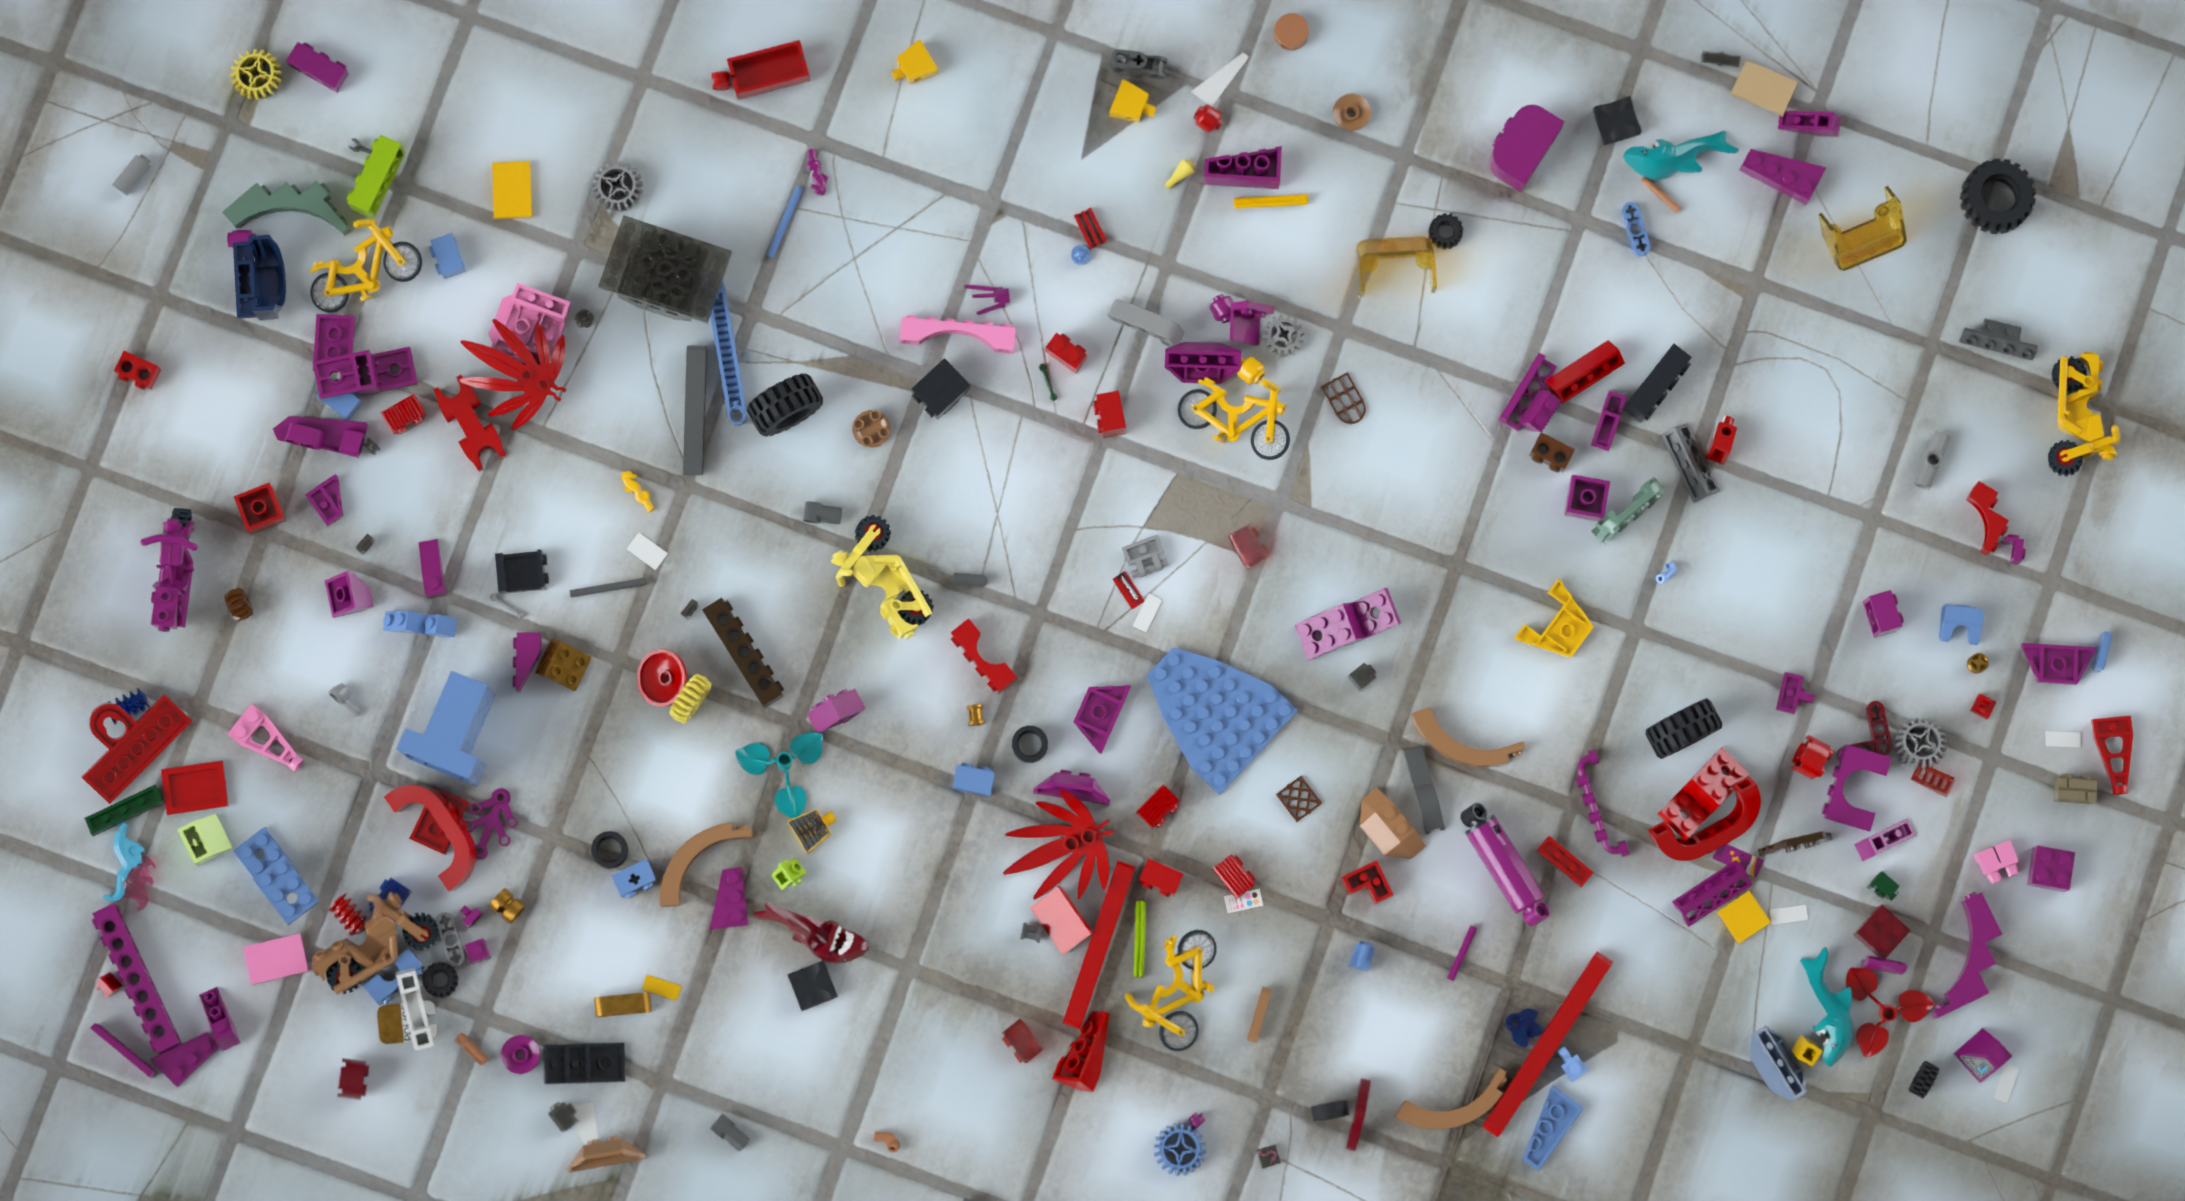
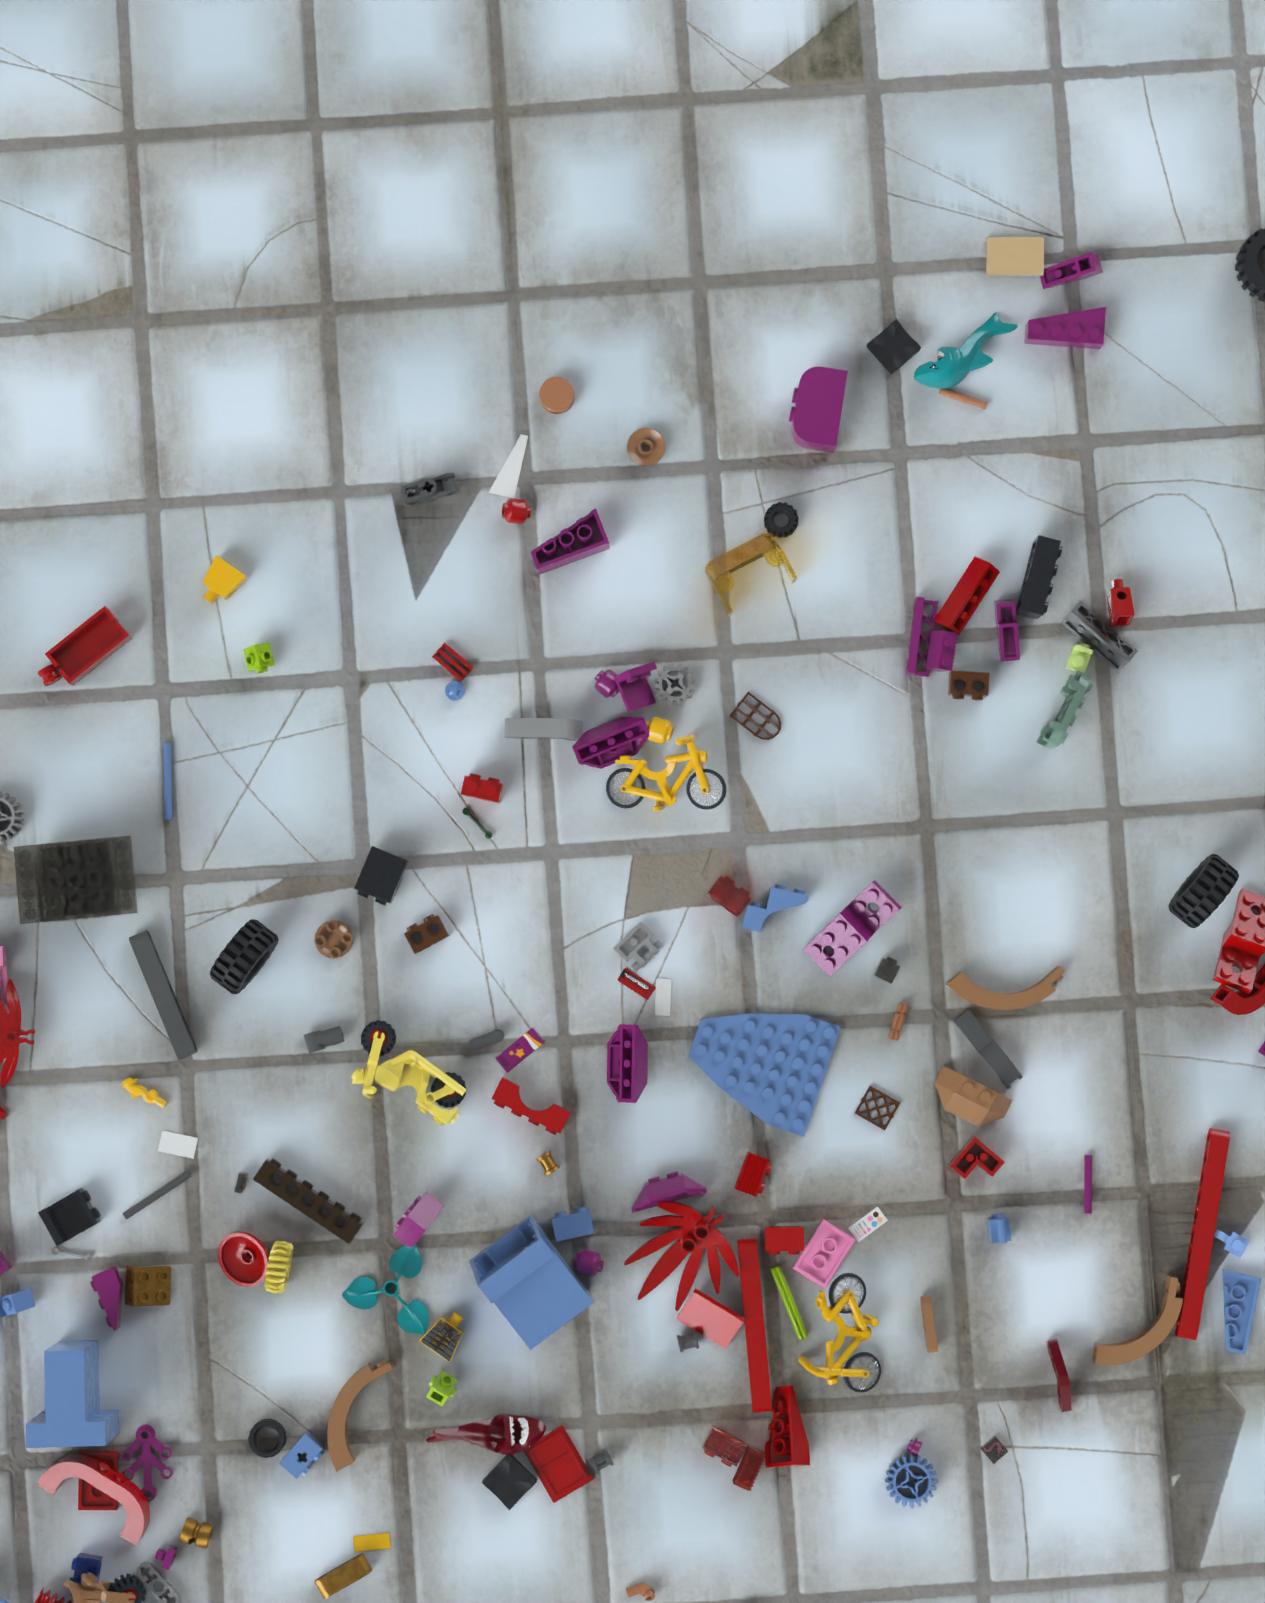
camera: 20 degrees left, 5 degrees up
(477, 951) = (188, 1587): magenta brick -> none
(579, 318) = (17, 954): clear smoke plate -> none
(728, 357) = (171, 930): medium blue gear -> none
(730, 902) = (399, 1435): magenta wing -> none
(819, 179) = (182, 726): magenta animal -> none
(863, 991) = (558, 1464): none -> red piece
(900, 1006) = (601, 1461): none -> dark grey bush
(913, 812) = (530, 1282): none -> medium blue piece
(917, 147) = (259, 657): none -> lime brick
(917, 331) = (336, 829): bright pink arch -> none
(957, 465) = (428, 938): none -> reddish brown brick
(972, 821) = (588, 1263): none -> magenta head
(995, 603) = (519, 1050): none -> magenta sticker
(999, 295) = (397, 762): magenta plant -> none
(1029, 758) = (605, 1182): black tyre -> none
(1036, 1069) = (749, 1467): none -> clear red brick
(1089, 655) = (627, 1063): none -> magenta wedge
(1099, 713) = (661, 1110): magenta wing -> none
(1111, 415) = (548, 829): red brick -> none
(1131, 103) = (438, 528): yellow torso -> none
(1183, 170) = (515, 569): light yellow cone -> none
(1191, 908) = (824, 1253): none -> bright pink tile
(1234, 876) = (850, 1207): red brick -> none
(1270, 201) = (607, 563): yellow axle -> none
(1291, 571) = (777, 900): none -> medium blue arch
(1330, 1110) = (1032, 1385): black tyre -> none
(1352, 729) = (898, 1021): none -> nougat axle
(1504, 864) = (1092, 1086): magenta piece -> none
(1526, 1026) = (1175, 1227): clear blue plate -> none
(1564, 861) = (1145, 1058): red plate -> none
(1566, 629) = (1053, 842): yellow wing -> none
(1586, 498) = (1019, 713): magenta brick -> none
(1589, 799) = (1142, 991): magenta bar -> none
(1627, 217) = (966, 449): medium blue beam -> none
(1665, 472) = (1079, 657): none -> yellowish green bracket
(1665, 576) = (1123, 750): light blue arm -> none
(1720, 59) = (963, 246): clear smoke pin -> none
(1868, 239) = (1172, 355): clear yellow windscreen -> none

